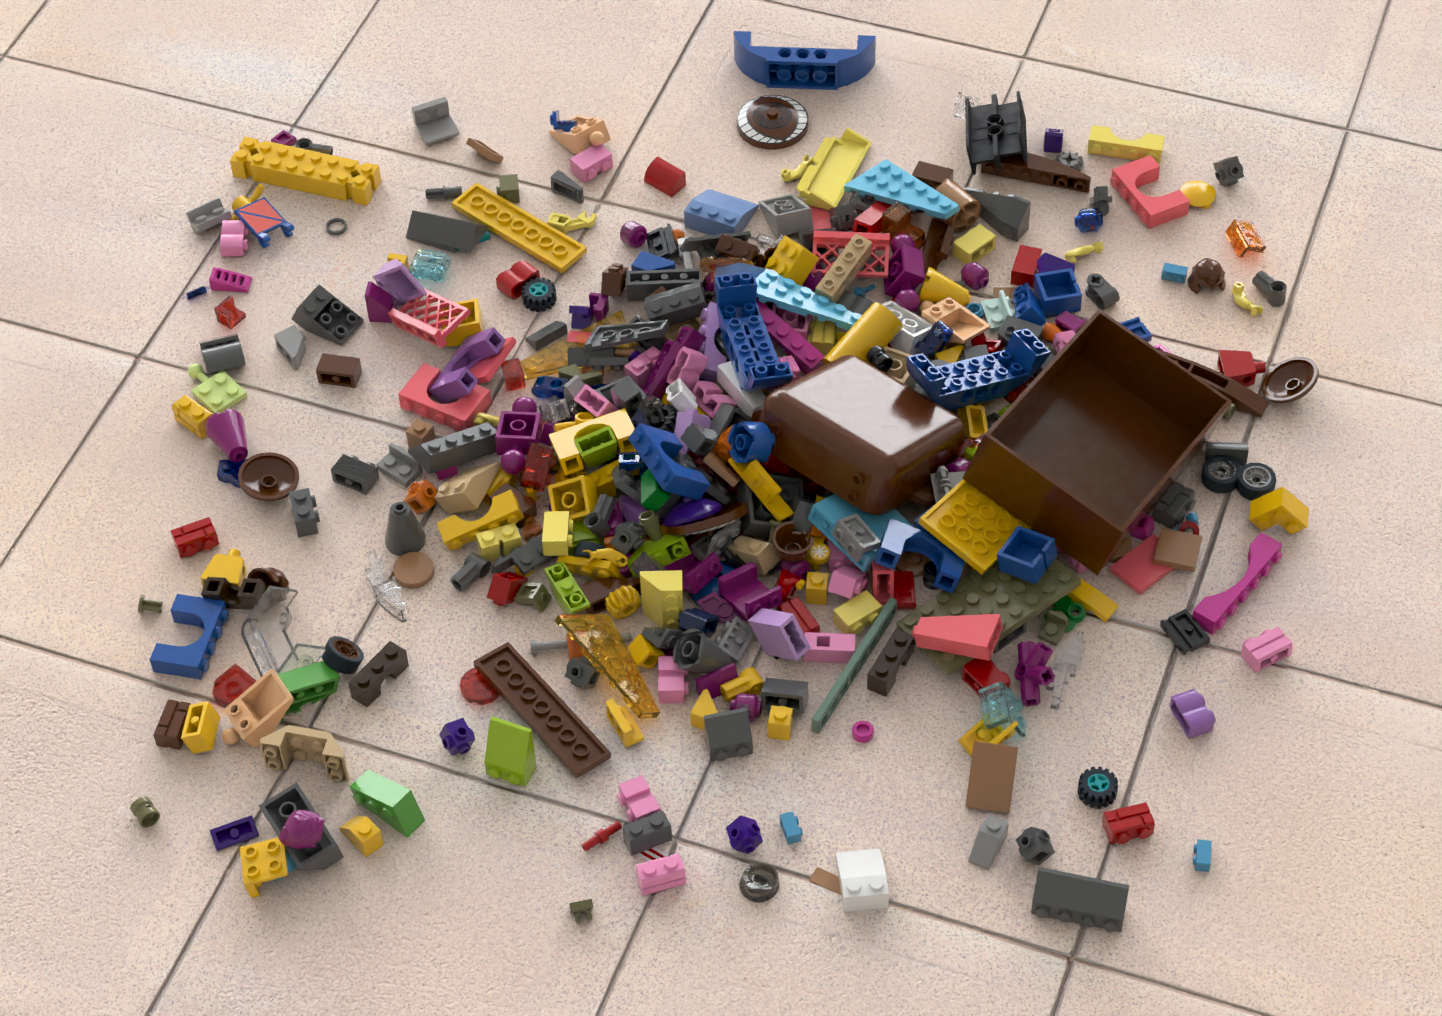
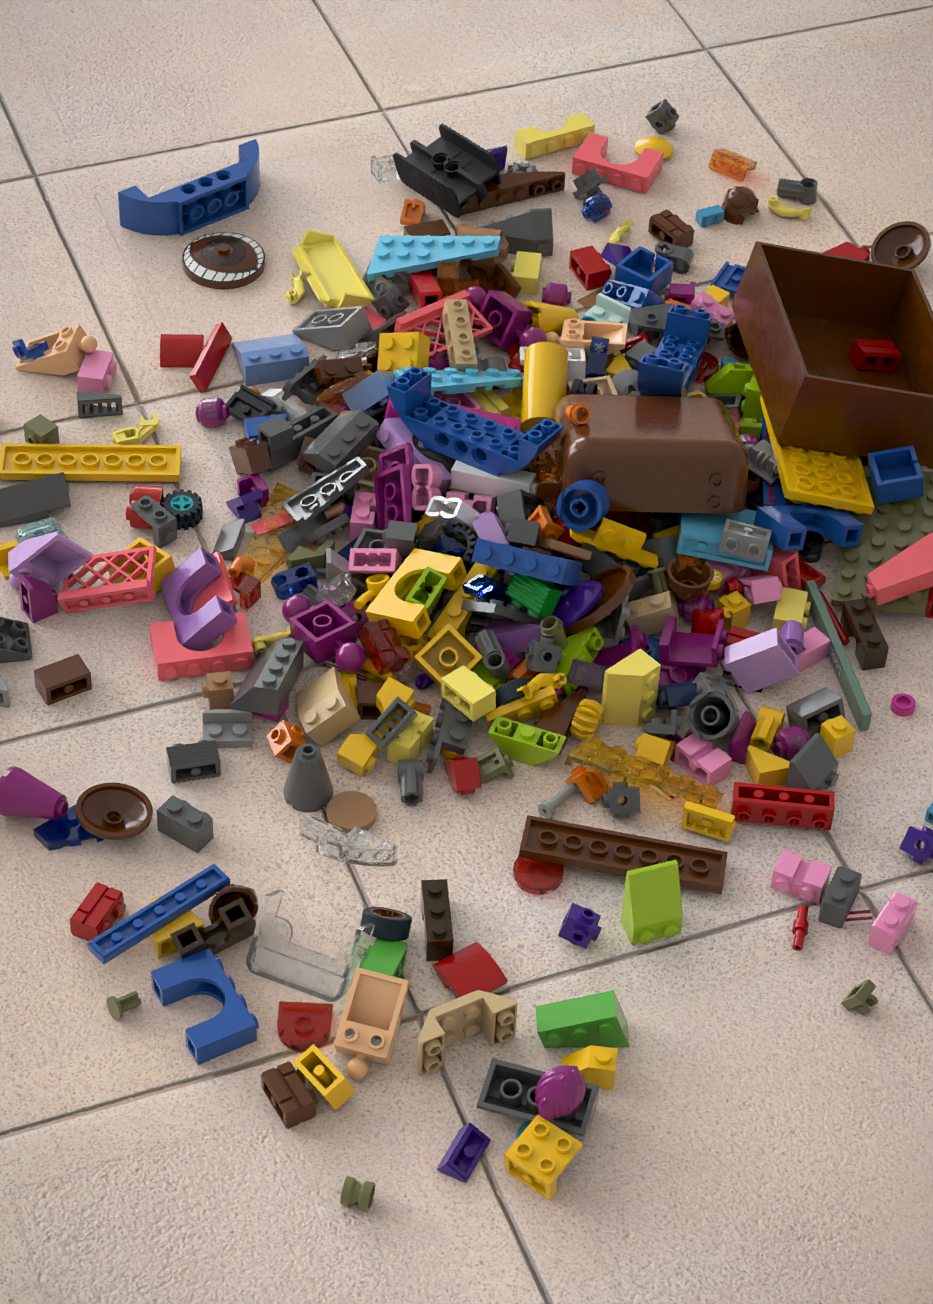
camera: 45 degrees left, 5 degrees down
(218, 559) = (158, 914): none -> blue tile
(362, 723) = (470, 971): none -> red slope
(495, 518) = (384, 718): none -> dark grey slope
(508, 292) = (162, 521): none -> dark grey bracket
(523, 354) = (241, 564): none -> orange arm
(637, 272) = (276, 433): none -> dark grey brick
(678, 192) = (211, 357): none -> red tile
(681, 746) = (782, 806): none -> red brick
(732, 560) = (649, 630): black bar -> none
(809, 371) = (578, 413): none -> orange cone
(820, 631) = (794, 635): none -> medium lavender brick
(832, 566) = (733, 585): none -> red plate
(899, 615) = (842, 635): none -> red bar
(945, 153) = (412, 212): none -> orange bracket
(1126, 269) = (671, 229): none -> reddish brown brick
(1147, 454) = (874, 355): none -> red brick

